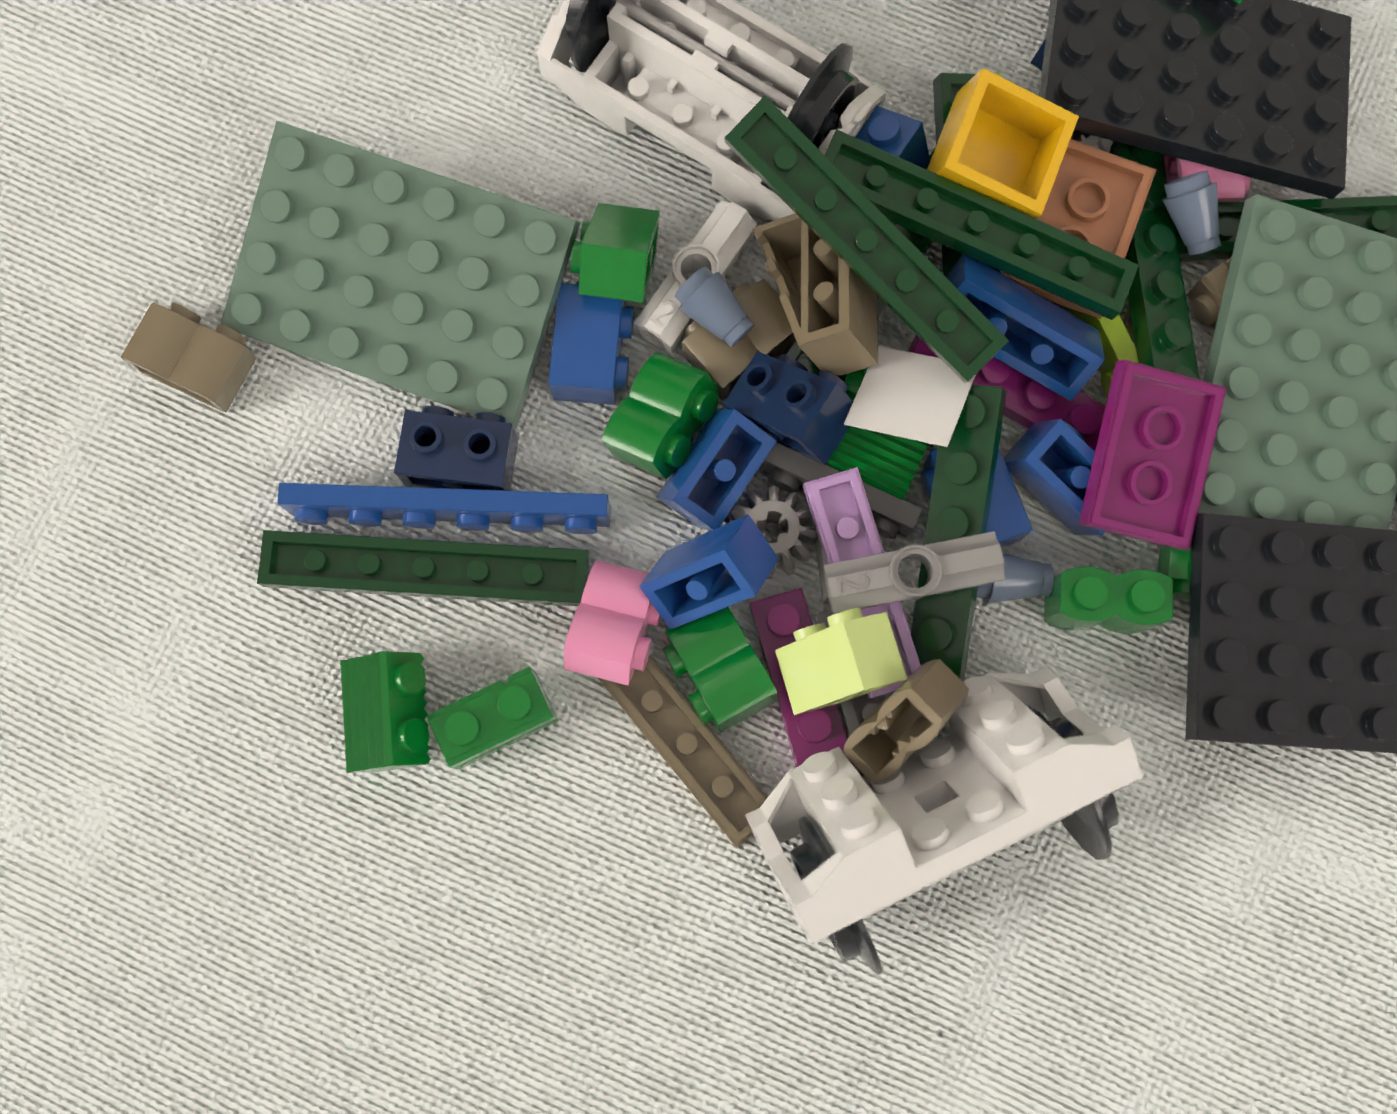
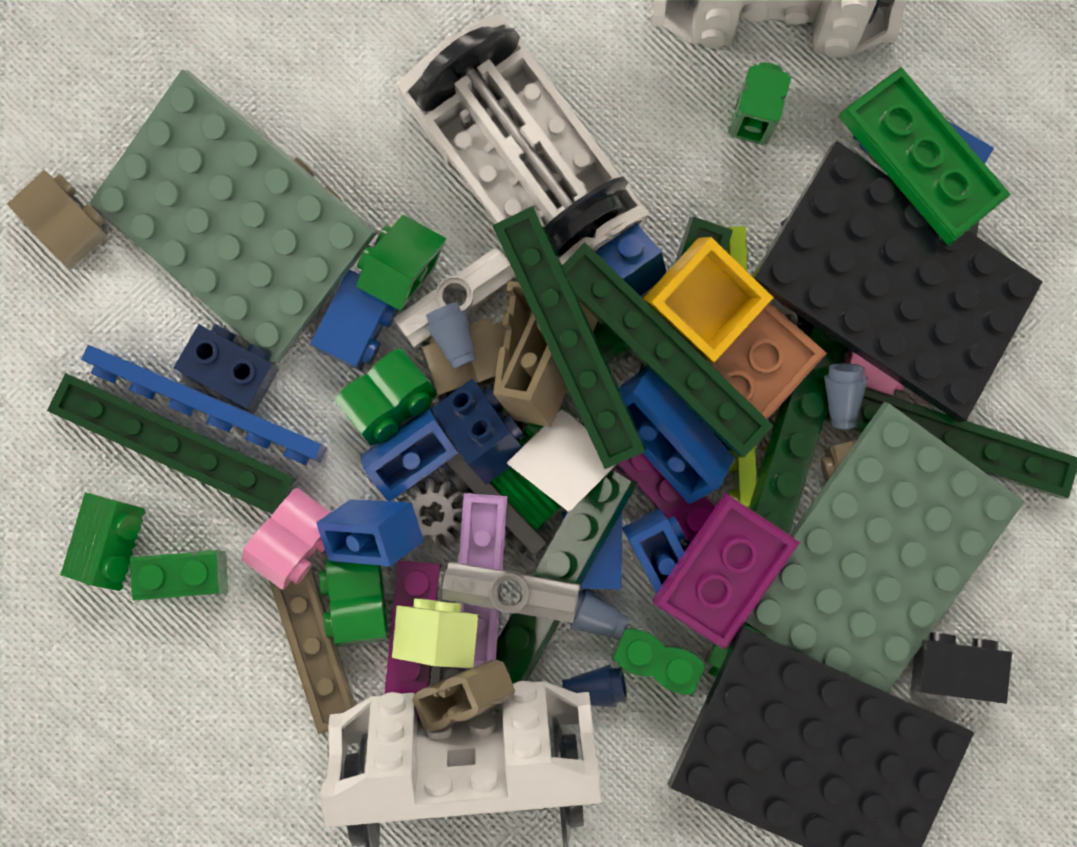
camera: 20 degrees right, 5 degrees up
(1055, 650) = (604, 685): none -> dark blue cone

